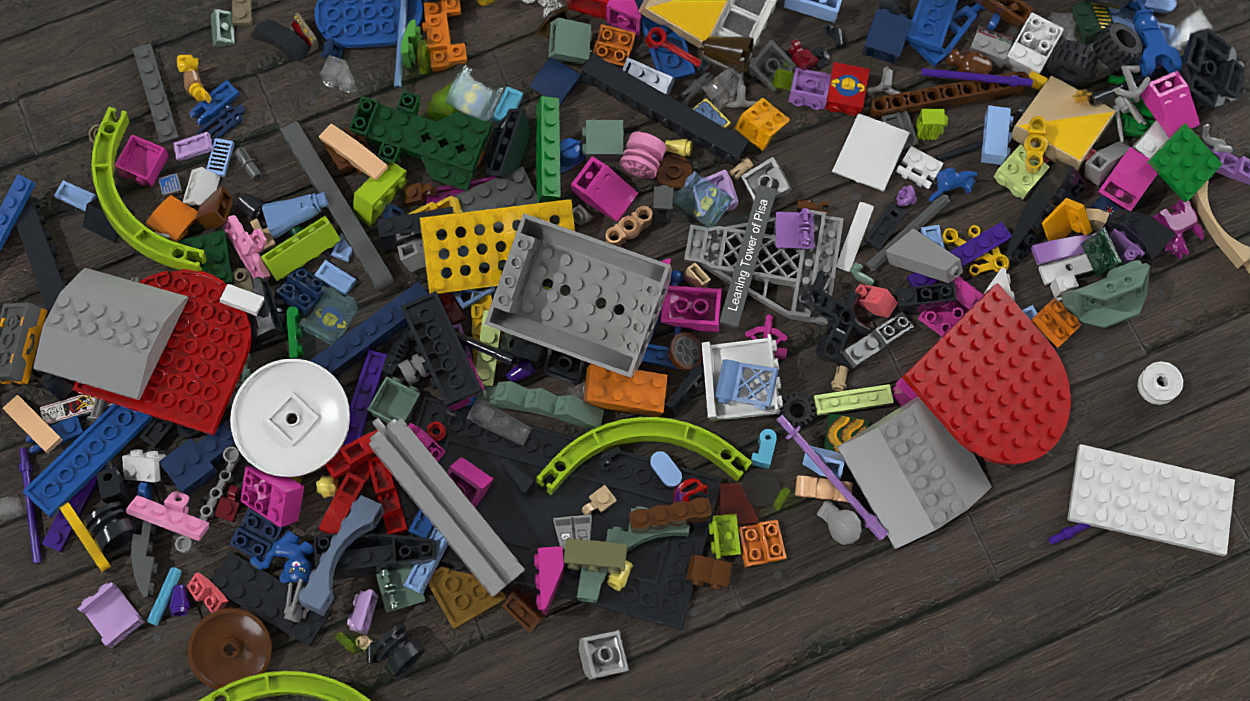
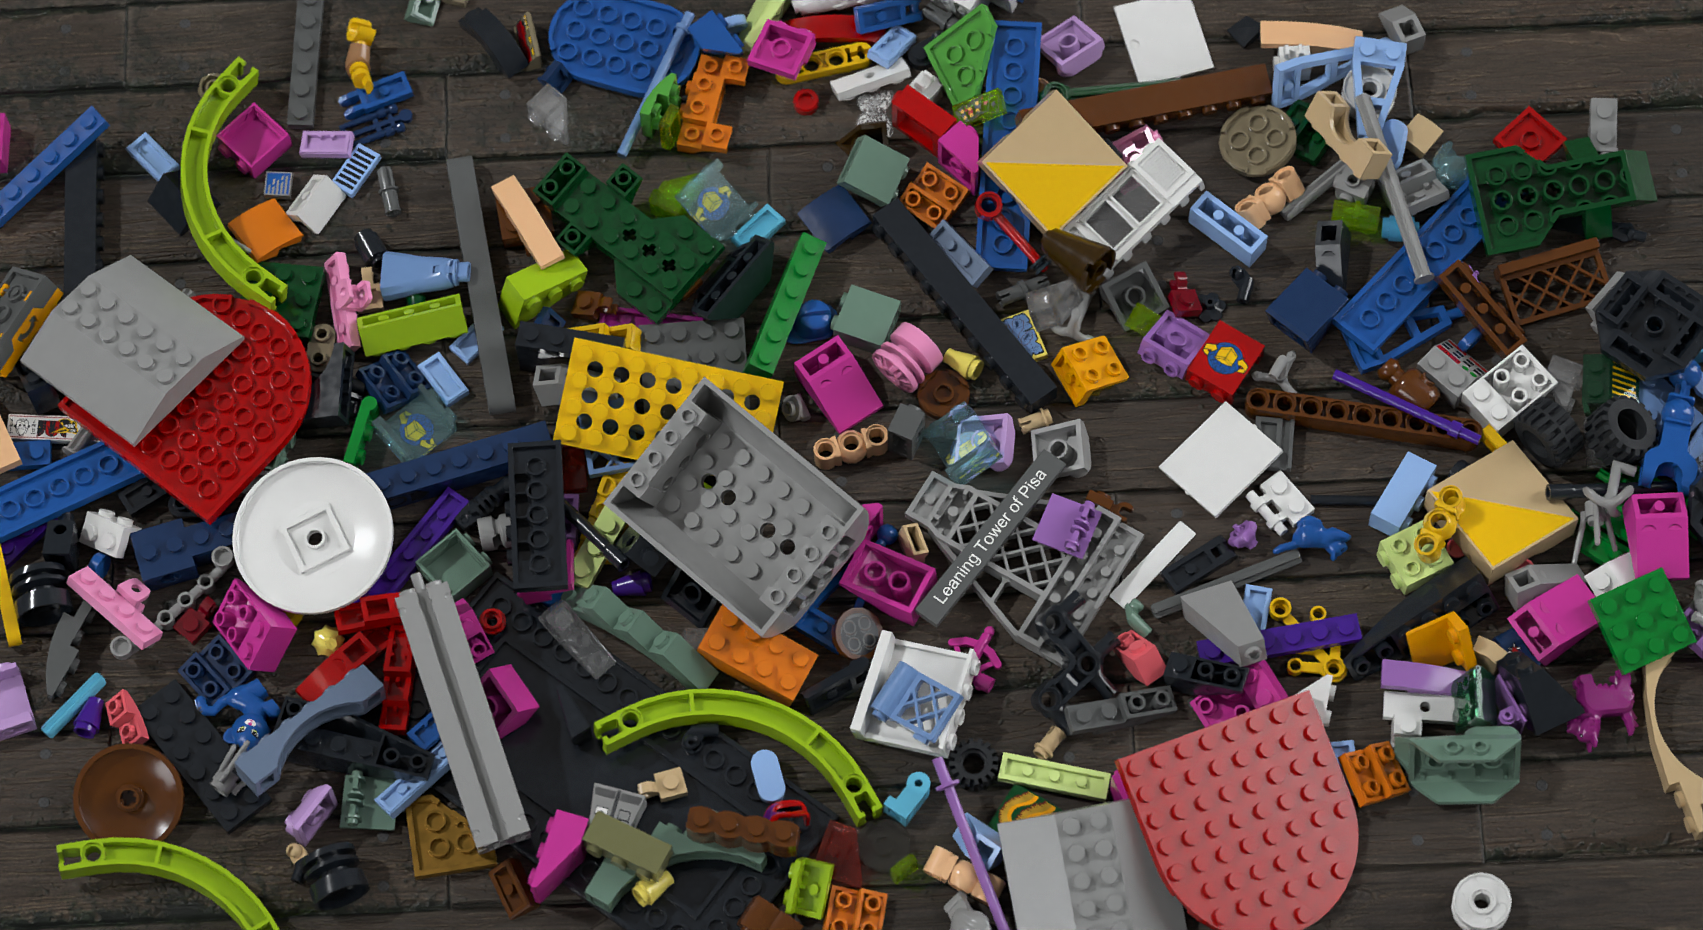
camera: 25 degrees right, 5 degrees down
(215, 209) = (323, 236): reddish brown slope -> none
(242, 299) = (310, 364): white tile -> none
(347, 643) = (275, 844): clear neon green tile -> none
(504, 12) = (806, 102): none -> red tile
(930, 124) = (1316, 449): lime brick -> none
(1082, 95) = (1536, 481): clear yellow plate -> none

